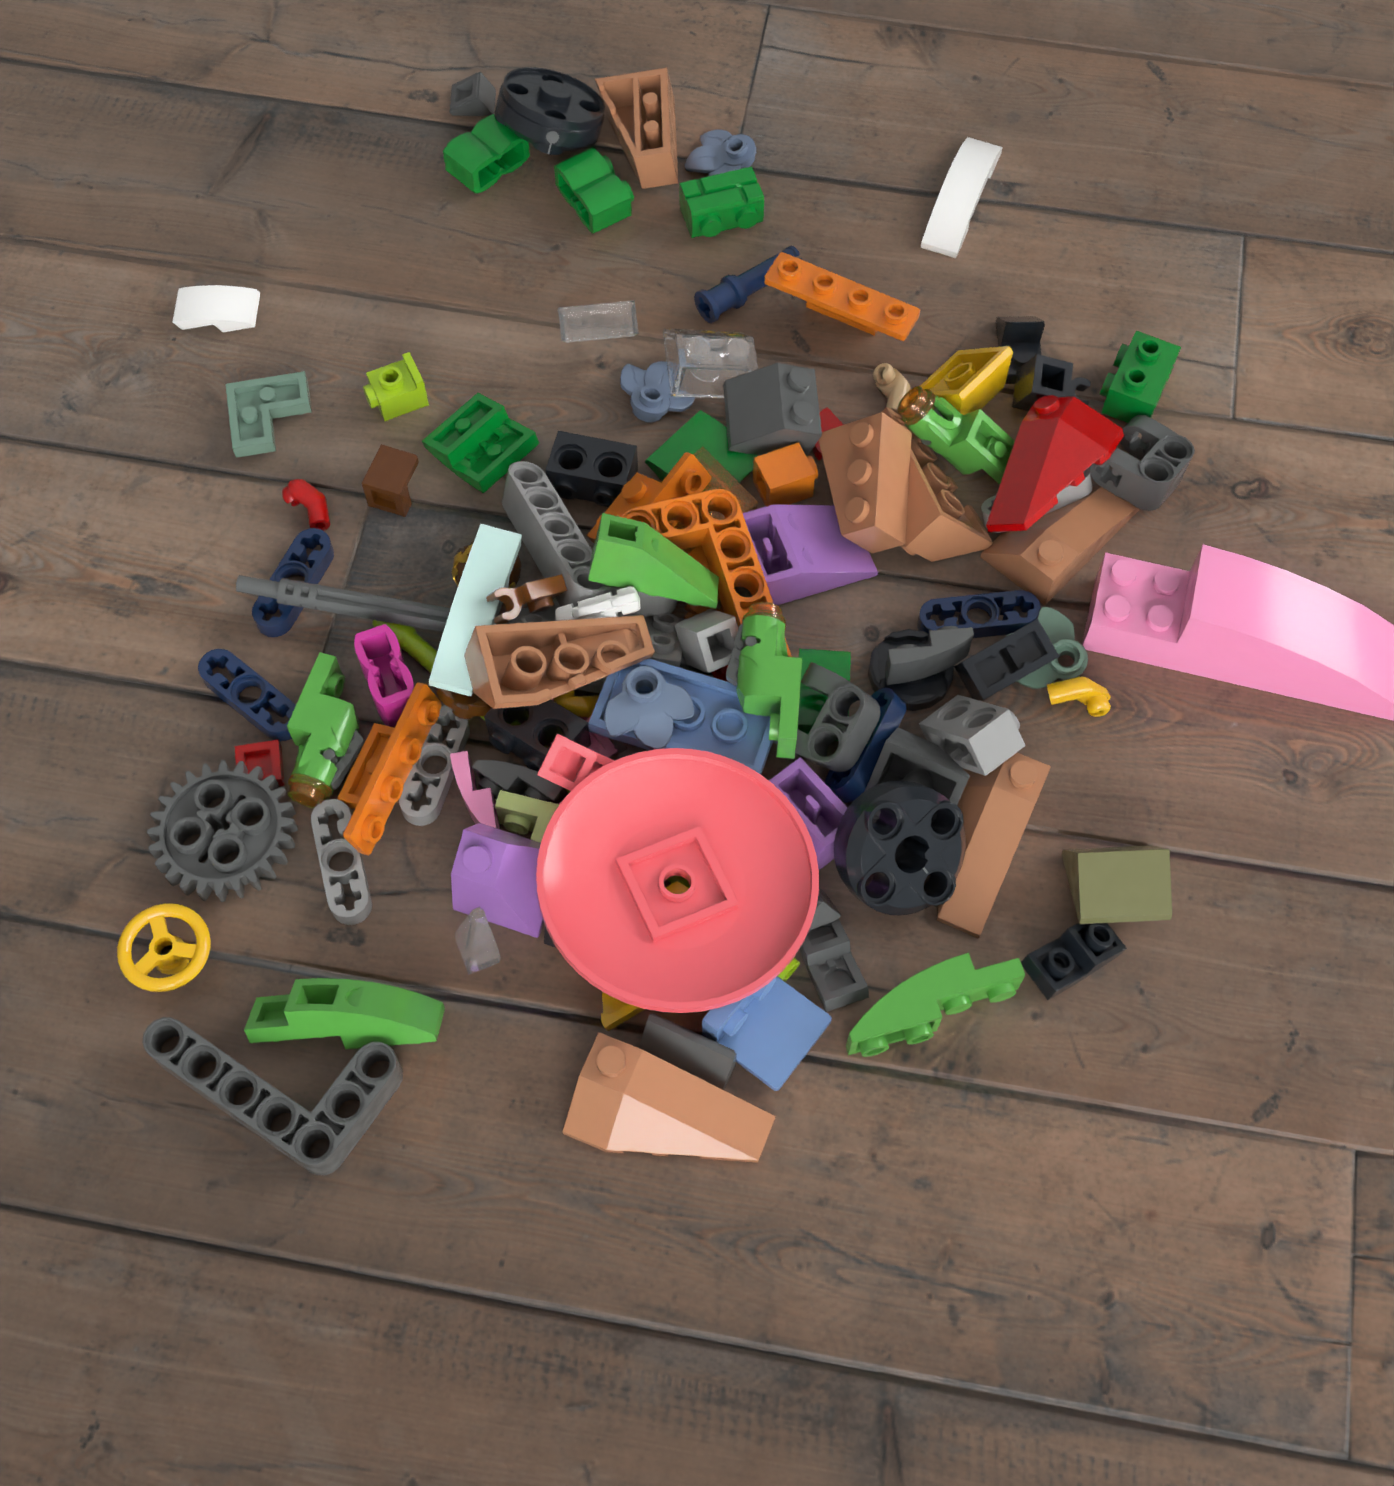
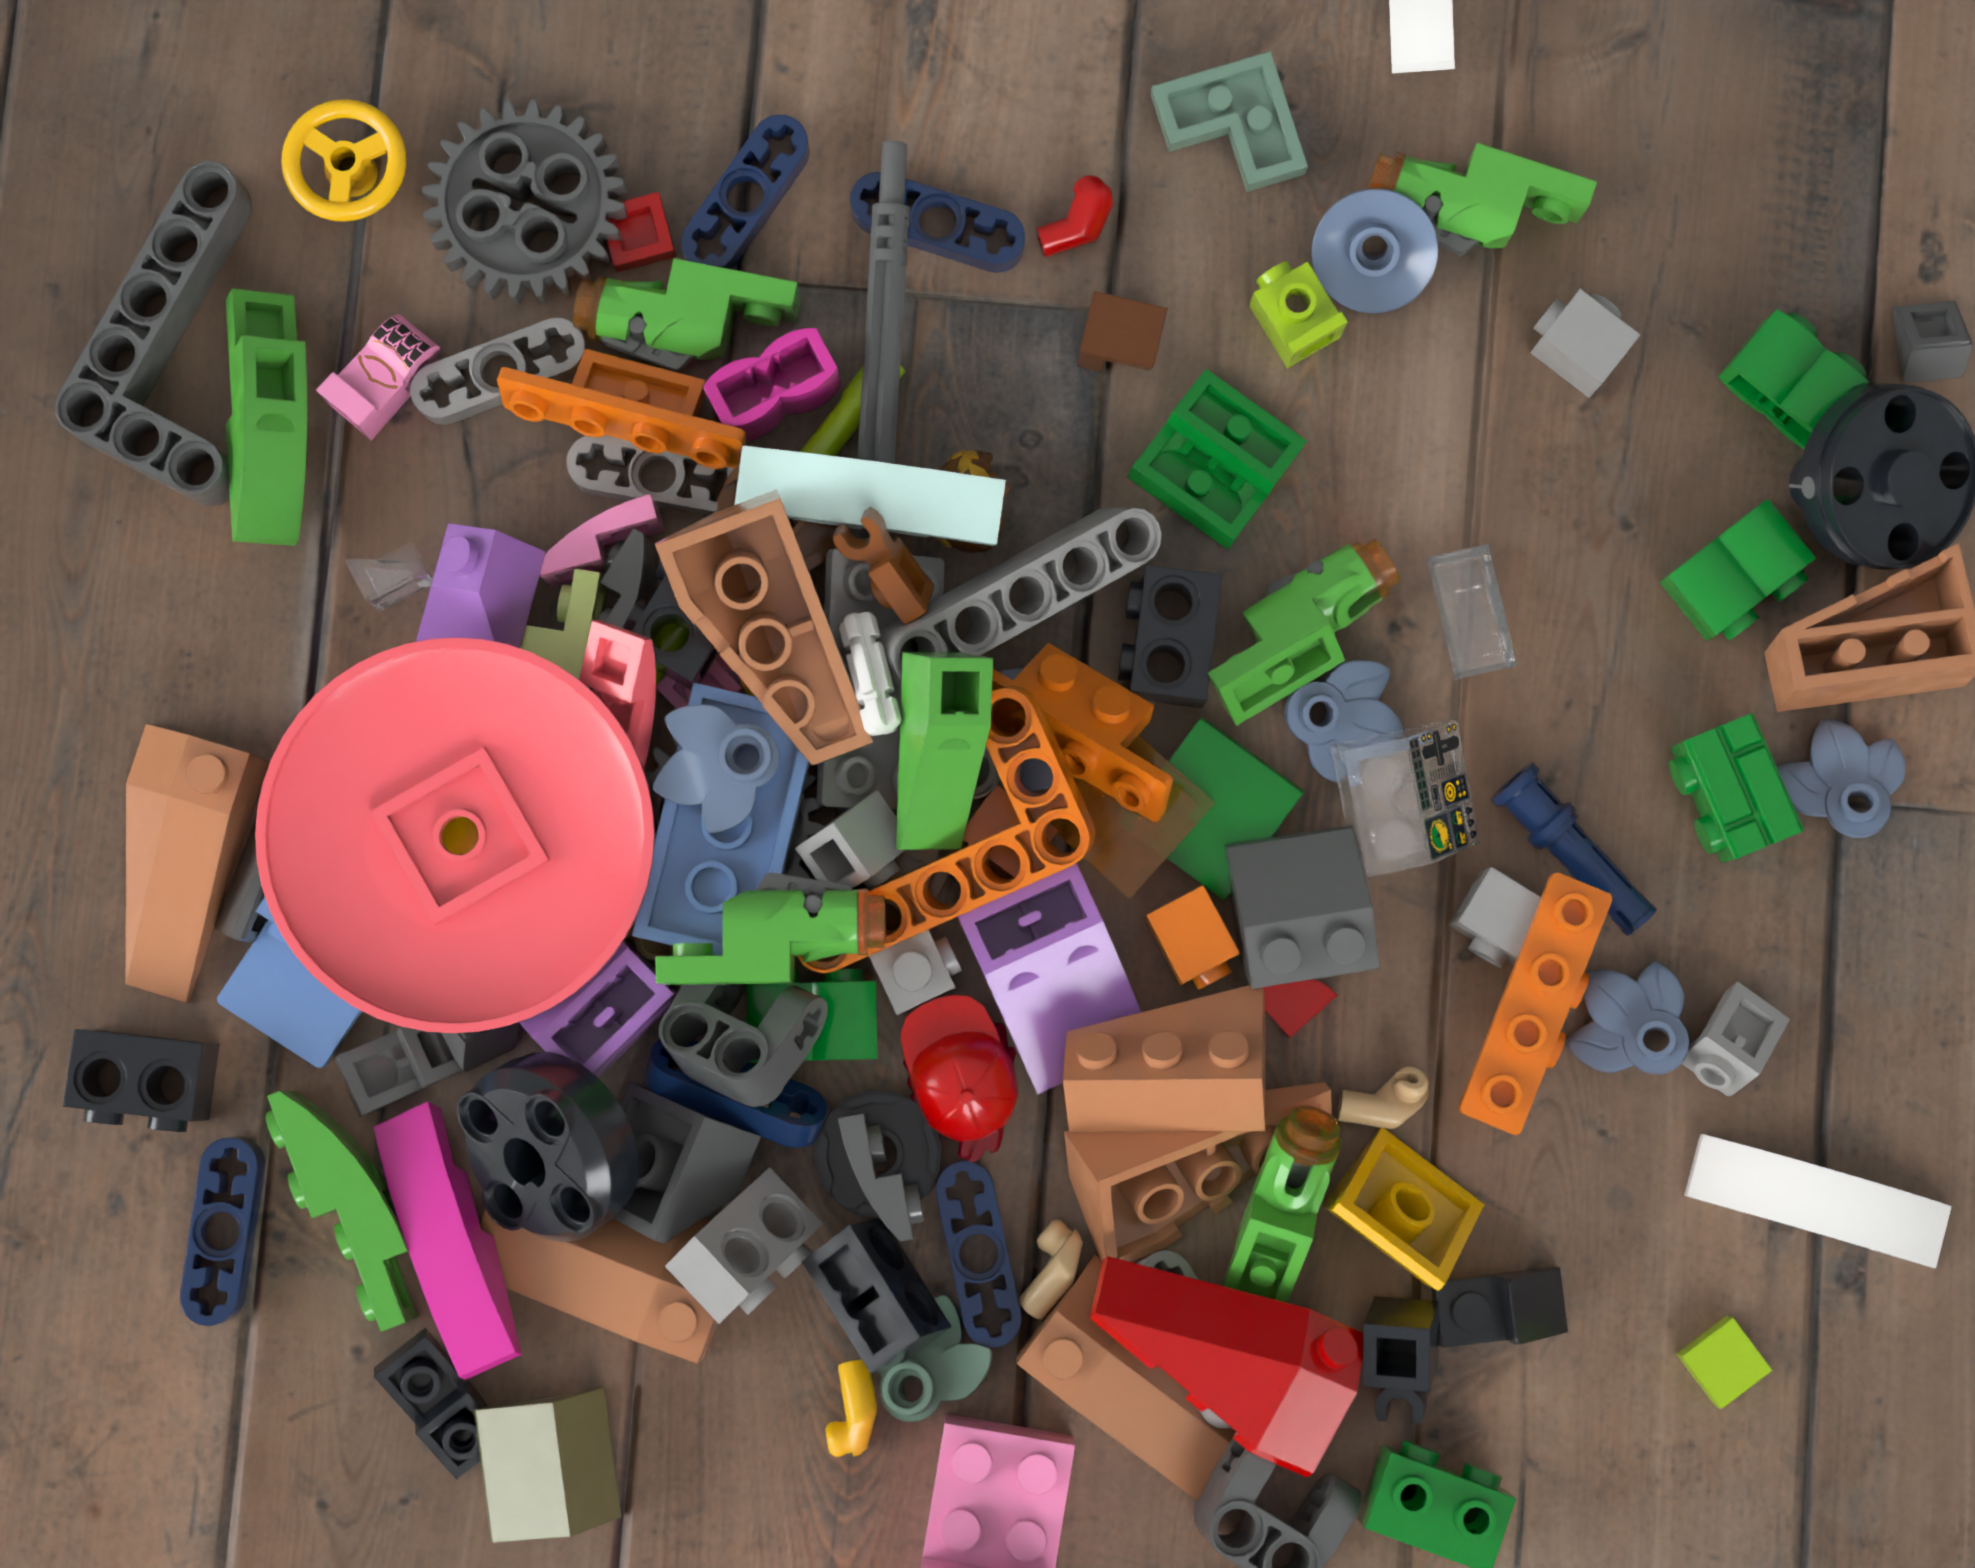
camera: 85 degrees right, 20 degrees up
(331, 939) = (379, 375): none -> bright pink leg
(343, 291) = (1487, 197): none -> bright green plate
(371, 329) = (1381, 280): none -> sand blue dish
(443, 247) = (1583, 340): none -> light grey brick
(594, 398) = (1298, 626): none -> bright green plate
(785, 321) = (1495, 916): none -> light grey brick
(802, 624) = (916, 971): none -> light grey brick
(822, 1143) = (142, 1066): none -> black brick
(845, 260) = (1625, 1014): none -> sand blue plate
(863, 609) = (960, 1072): none -> red hair
(869, 215) = (1736, 1040): none -> light grey bracket
(959, 932) = (445, 1241): none -> dark pink slope
(979, 1117) = (229, 1280): none -> dark blue beam
(989, 567) = (1059, 1272): none -> tan arm
(1053, 245) = (1724, 1362): none -> lime tile

